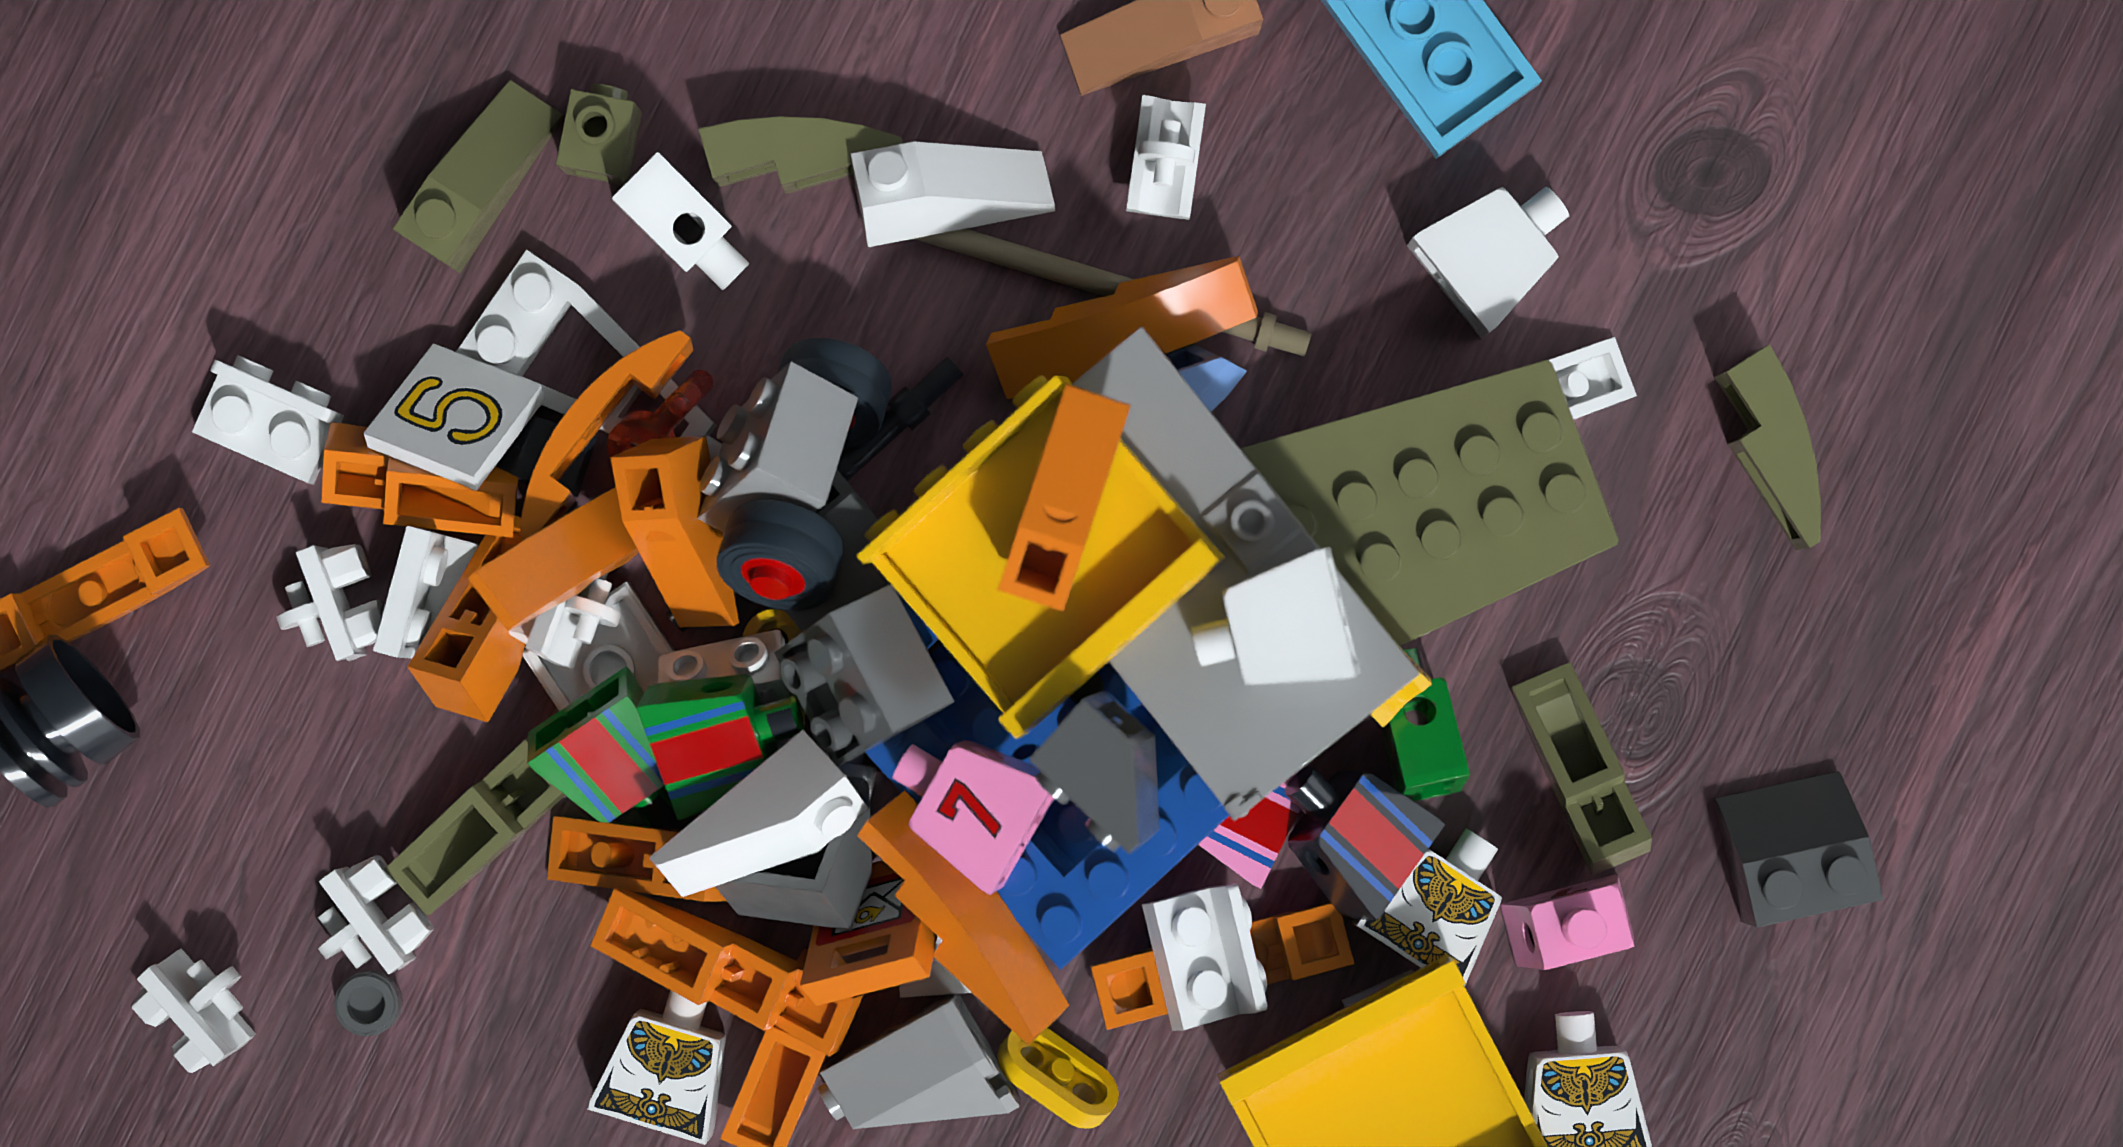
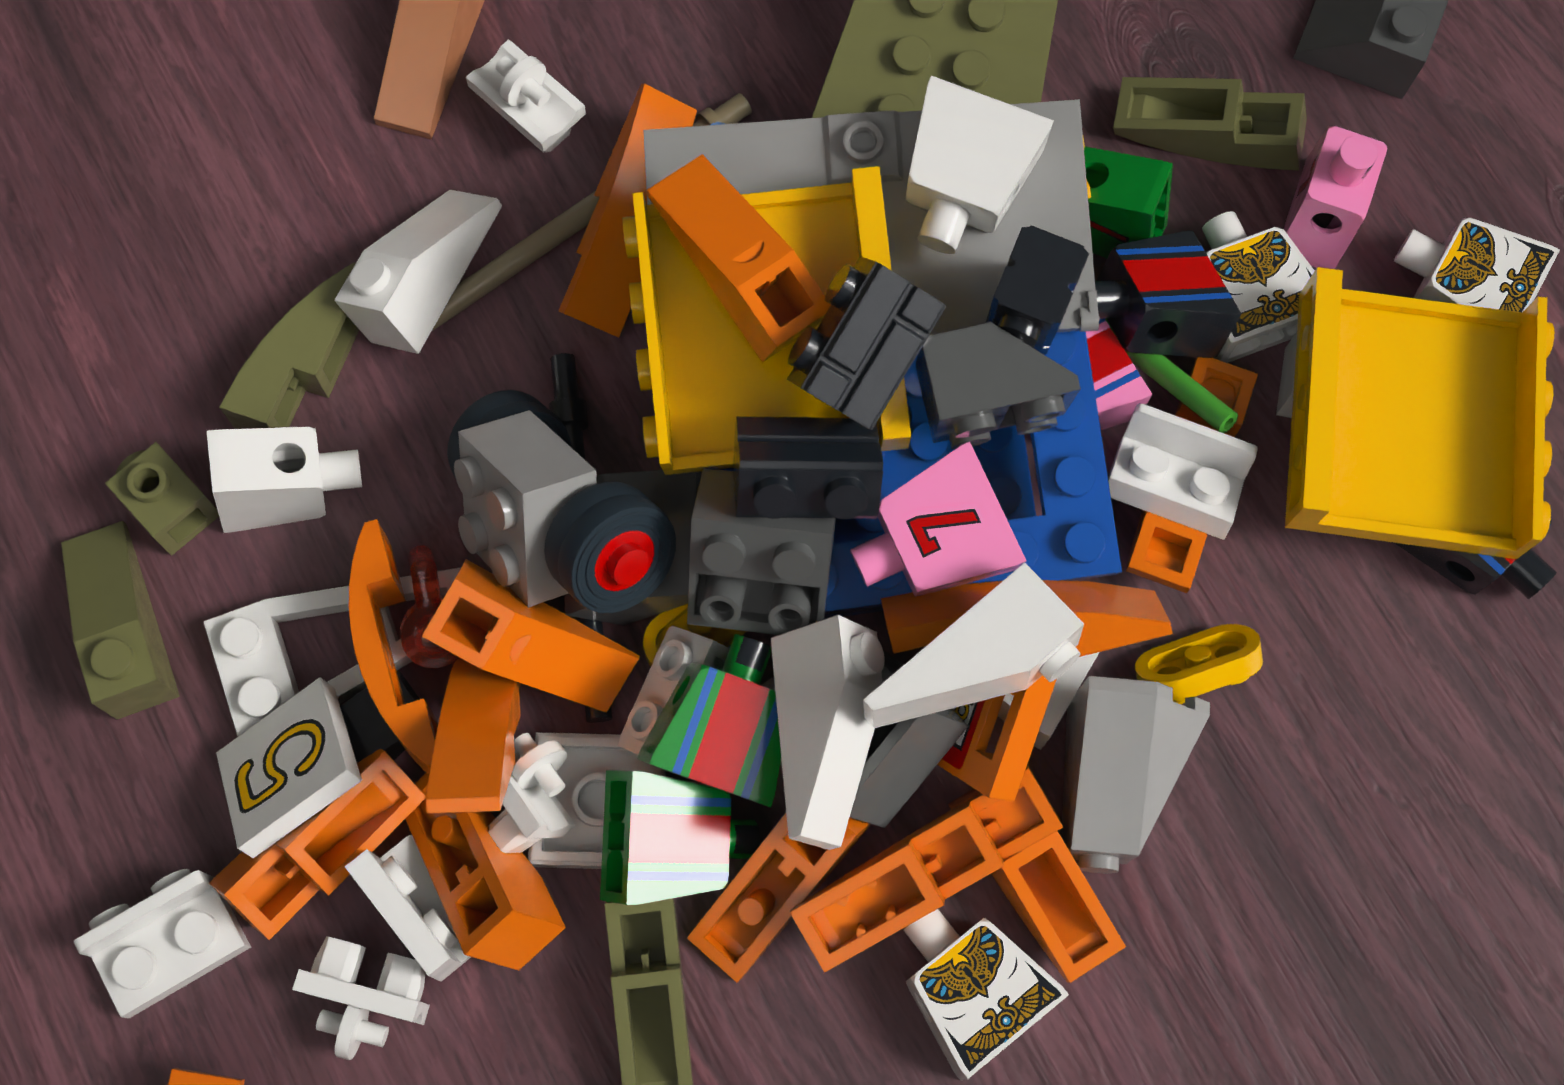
camera: 60 degrees left, 15 degrees down
(897, 918) = (987, 653): none -> white slope
(933, 674) = (806, 468): none -> black brick
(1047, 657) = (864, 340): none -> black brick
(1194, 760) = (1037, 286): none -> black brick
(1287, 917) = (1185, 389): none -> bright green piece

